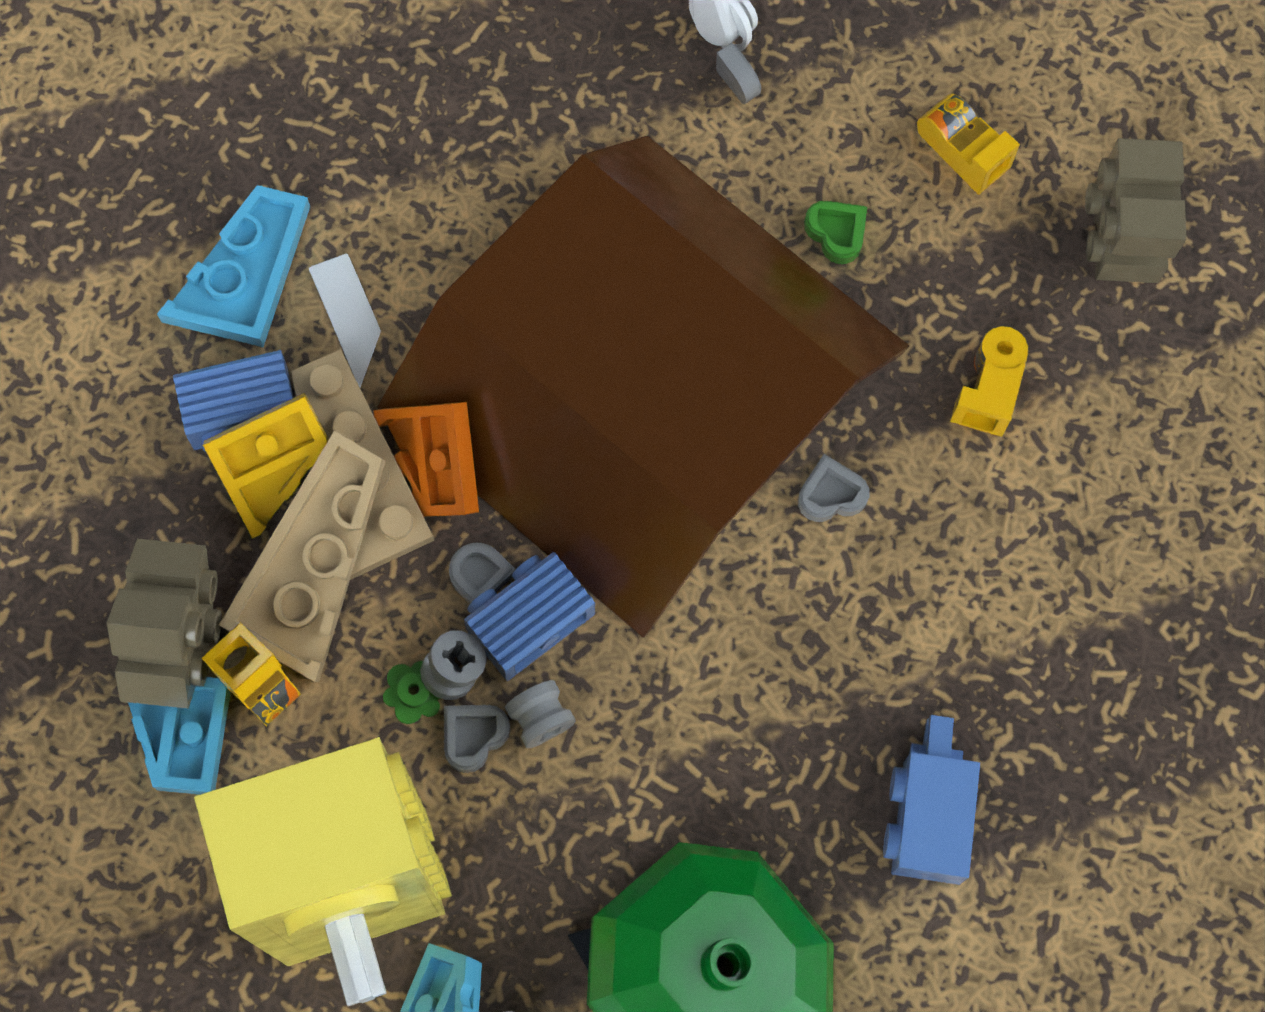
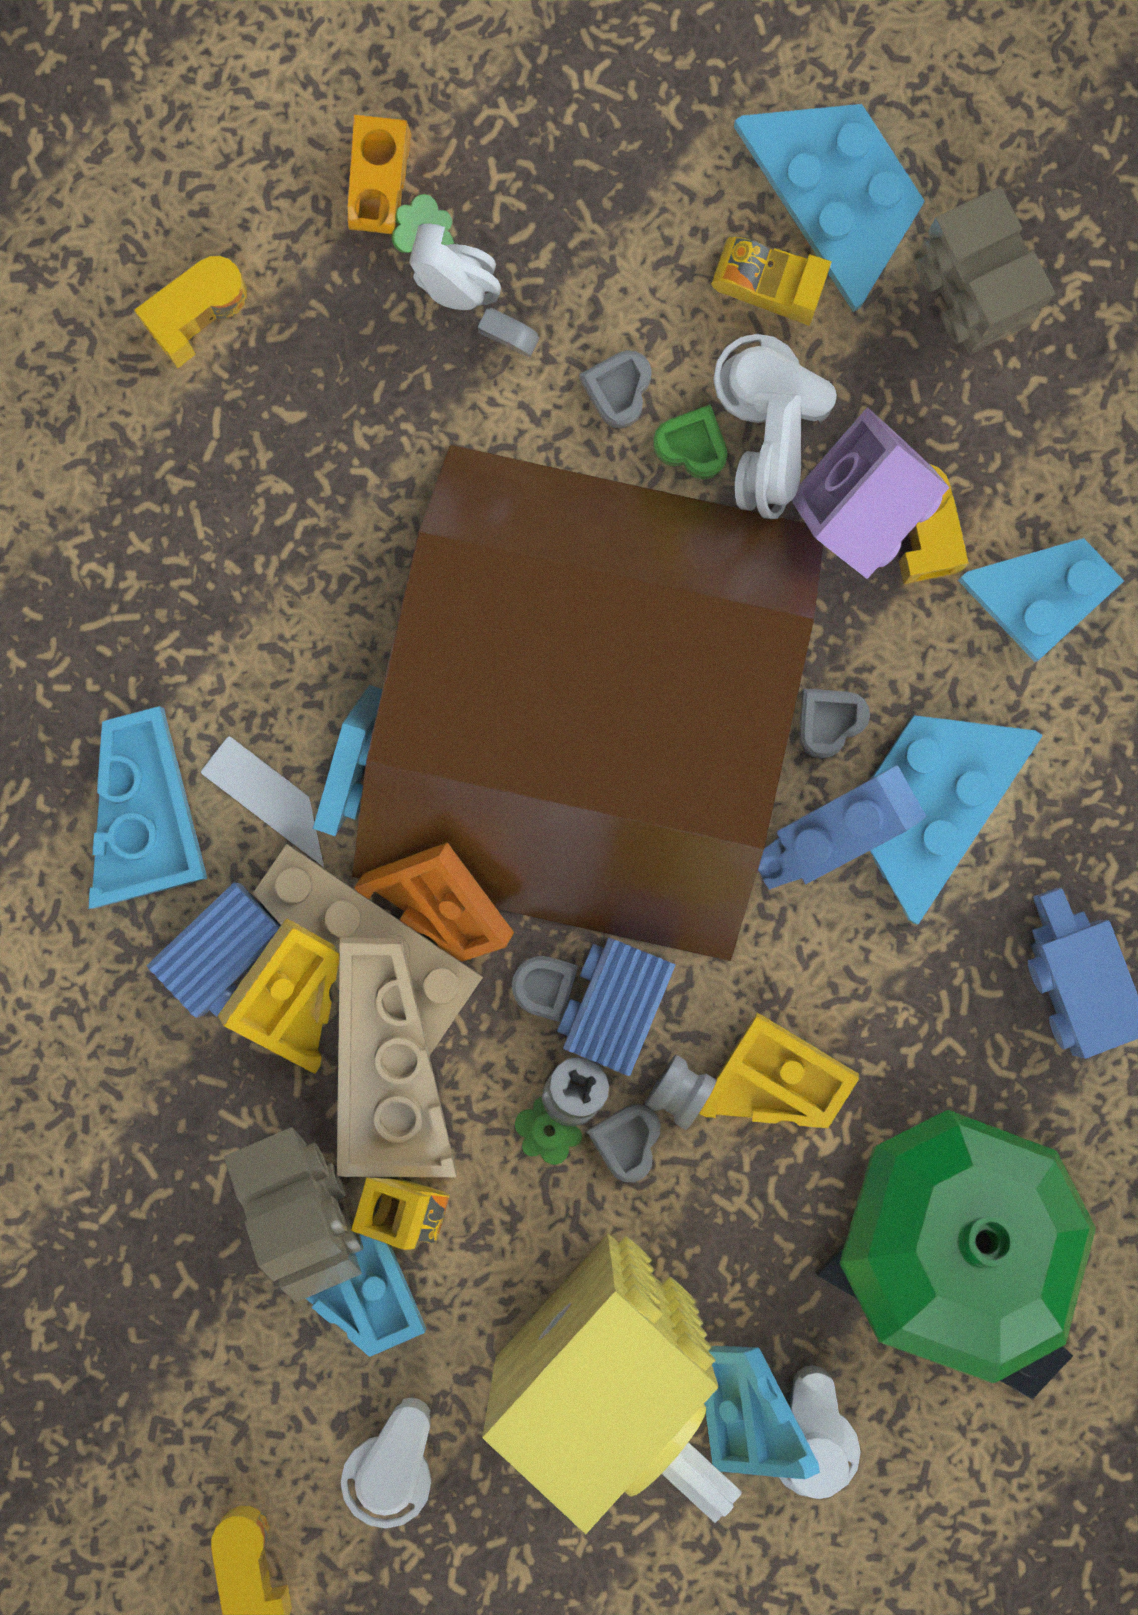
camera: 25 degrees left, 15 degrees up
(111, 892) = (391, 1467): none -> white piece
(403, 327) = (342, 788): none -> medium azure wing
(627, 750) = (779, 1079): none -> yellow wing
(793, 569) = (841, 830): none -> medium blue hinge
(802, 159) = (617, 387): none -> light grey tile
(884, 599) = (958, 779): none -> medium azure wing
(893, 270) = (776, 470): none -> white piece
(924, 211) = (769, 369): none -> white piece
(957, 326) = (868, 494): none -> lavender slope
(1054, 107) = (837, 187): none -> medium azure wing
(1062, 485) = (1043, 592): none -> medium azure wing

